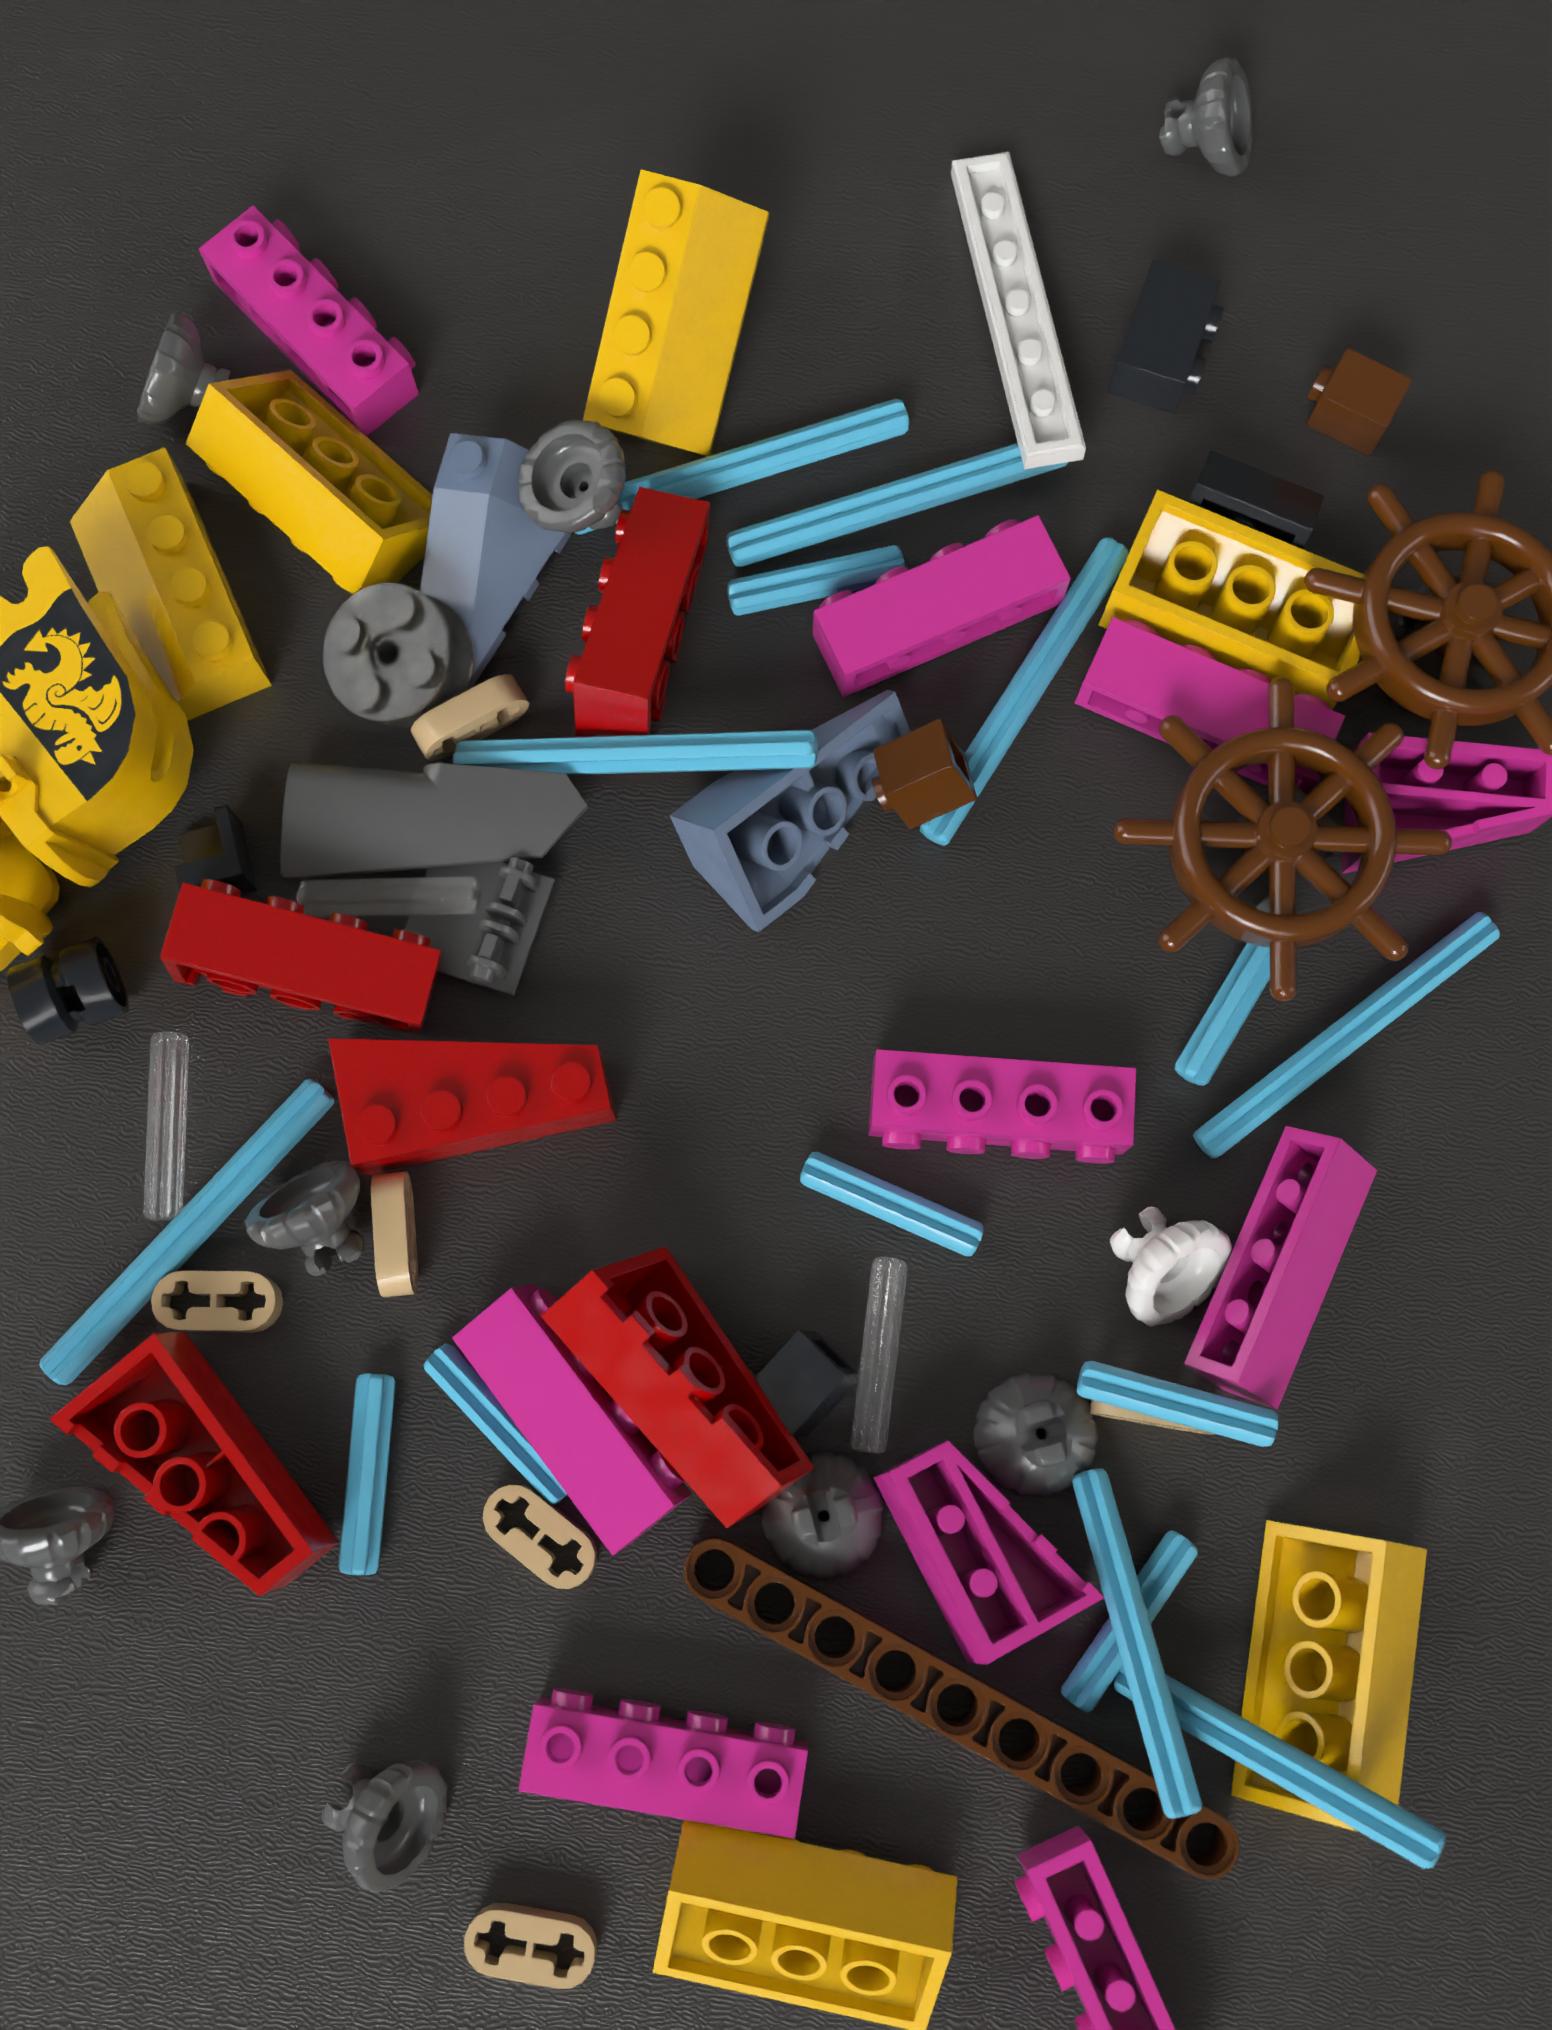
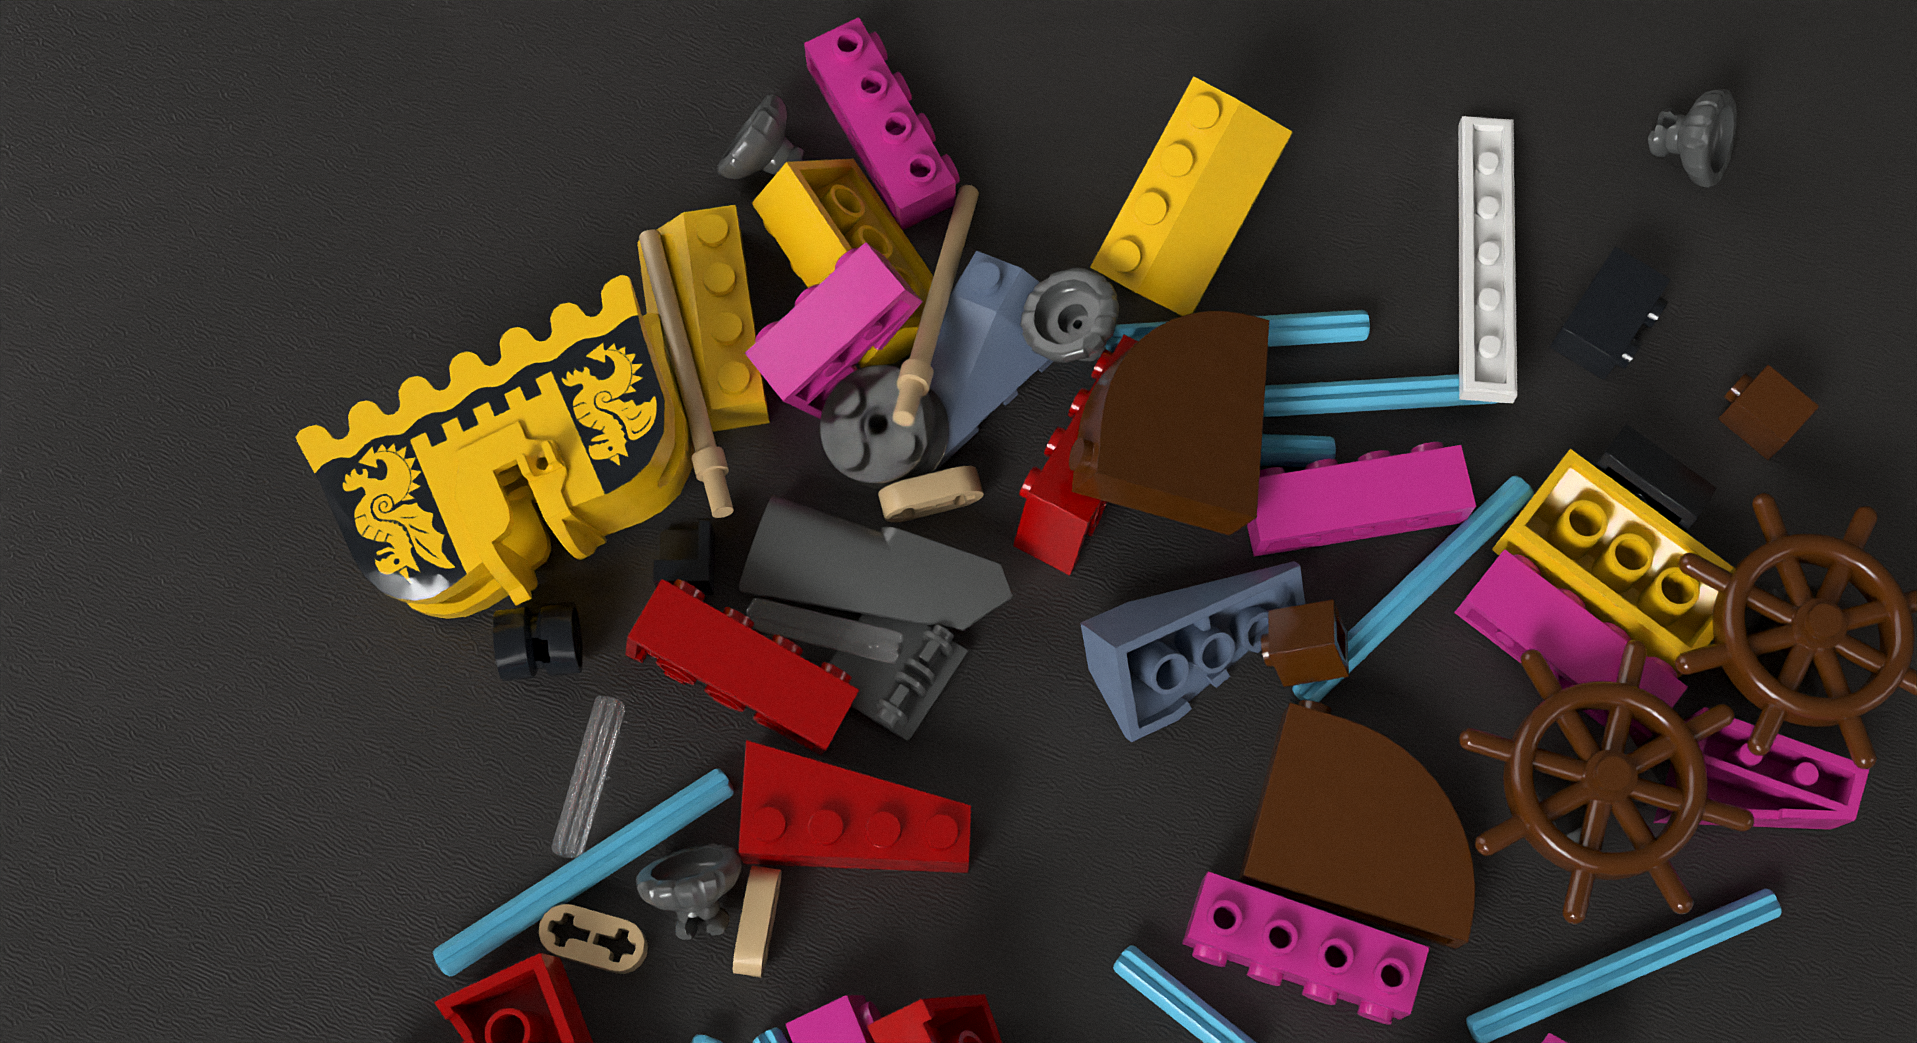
camera: 15 degrees right, 5 degrees down
(204, 737) = (708, 459): none -> tan bar
(308, 555) = (833, 328): none -> dark pink wedge
(413, 580) = (916, 372): none -> tan bar
(646, 752) = (1072, 564): medium azure axle -> none
(723, 565) = (1180, 423): none -> reddish brown brick
(1030, 962) = (1359, 830): none -> reddish brown brick
(1225, 1015) = (1519, 922): medium azure axle -> none

